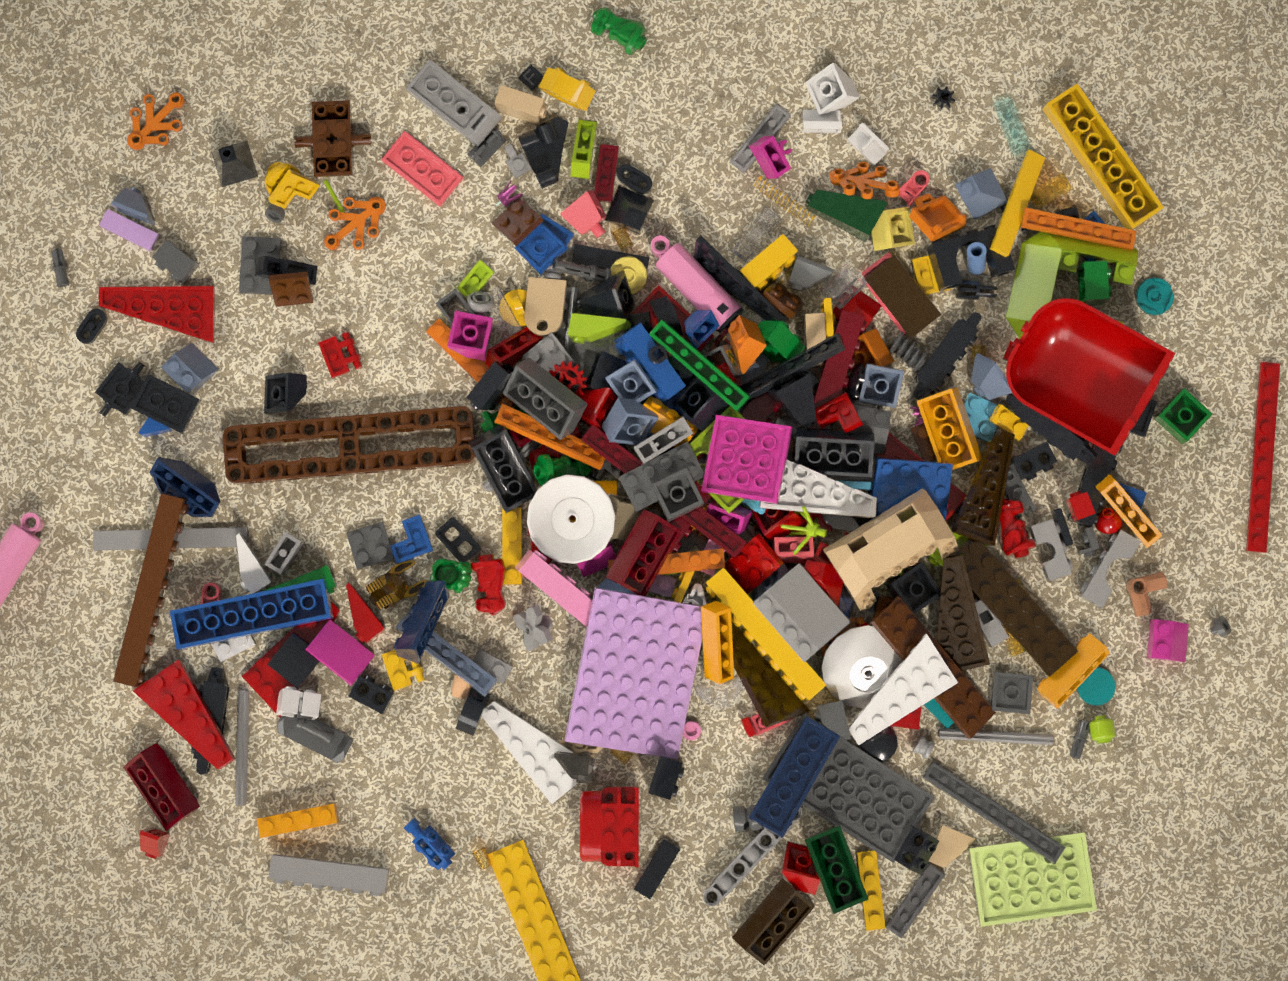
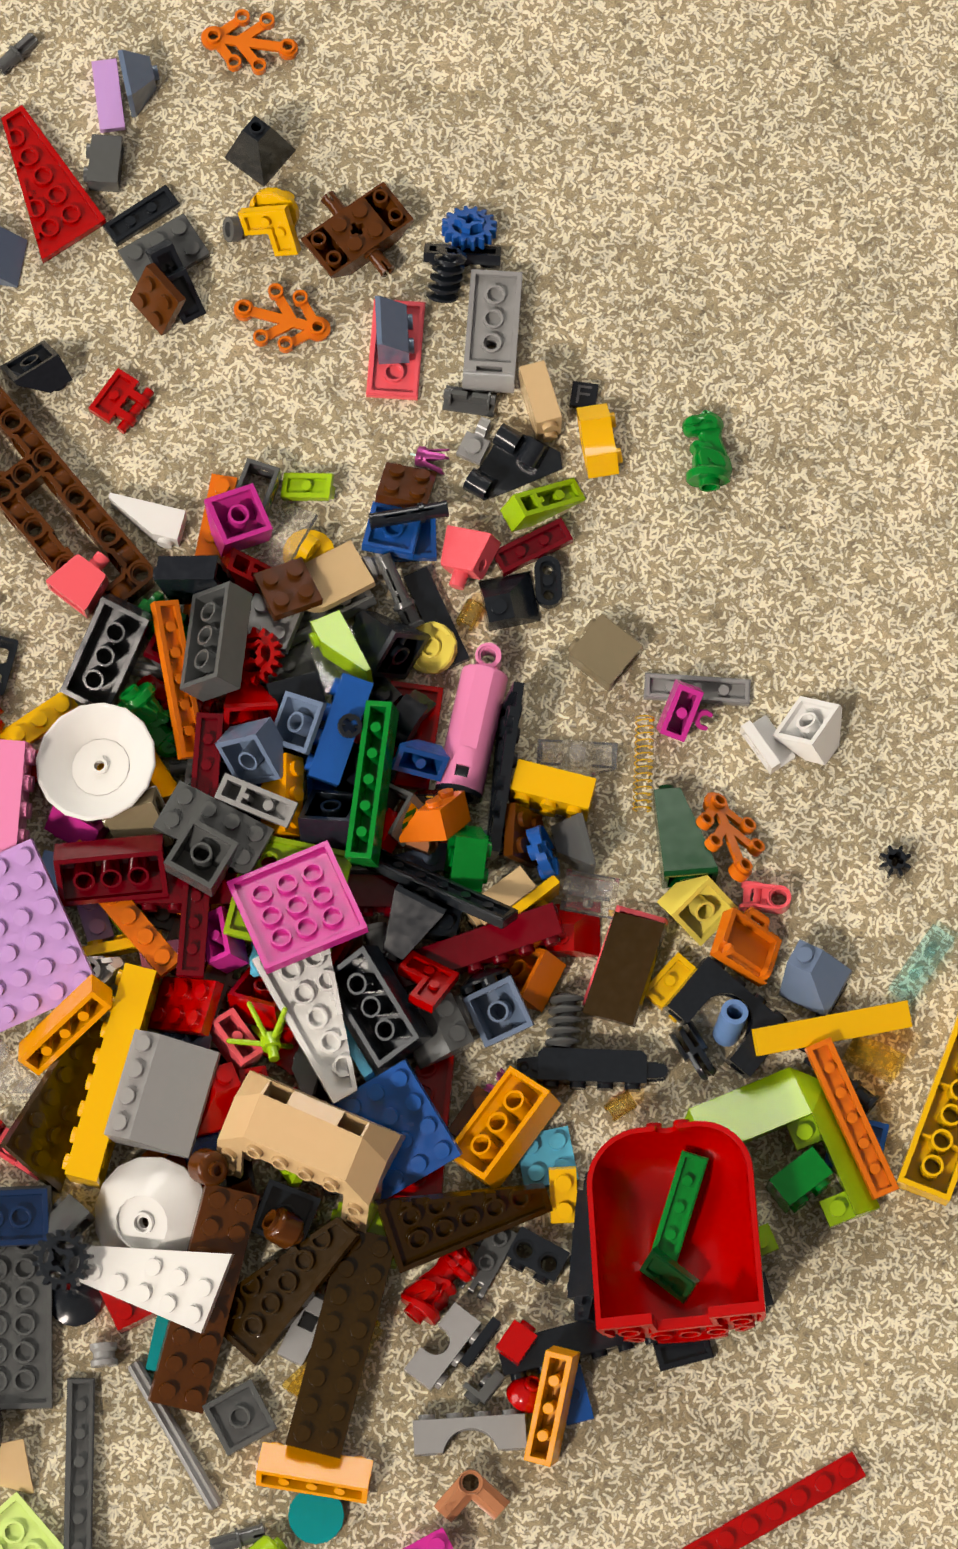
camera: 60 degrees right, 10 degrees down
(225, 263) = (141, 215): none -> black tile
(341, 209) = (298, 278): lime piece -> none
(376, 71) = (469, 228): none -> blue gear
(390, 87) = (486, 258): none -> black plate
(399, 105) = (447, 274): none -> black piece
(413, 162) = (392, 331): none -> sand blue slope
(433, 385) = (157, 521): none -> white slope
(446, 454) = (81, 582): none -> coral torso
(480, 302) = (283, 506): light grey brick -> none
(536, 334) = (287, 589): none -> reddish brown plate
(549, 212) = (409, 514): none -> black pin
(701, 176) = (604, 652): none -> dark tan piece
(804, 296) = (541, 850): none -> blue plate
(863, 614) = (208, 1167): none -> reddish brown head
(868, 144) = (777, 814): white panel -> none
(869, 735) = (69, 1269): none -> black gear
(927, 594) = (283, 1227): none -> reddish brown head
(988, 378) = (594, 1130): sand blue slope -> none
(1066, 361) = (680, 1204): none -> green tile
(1102, 393) = (669, 1275): none -> dark green plate
(1148, 296) = (833, 1275): teal tile -> none
(1183, 416) = (716, 1397): green brick -> none

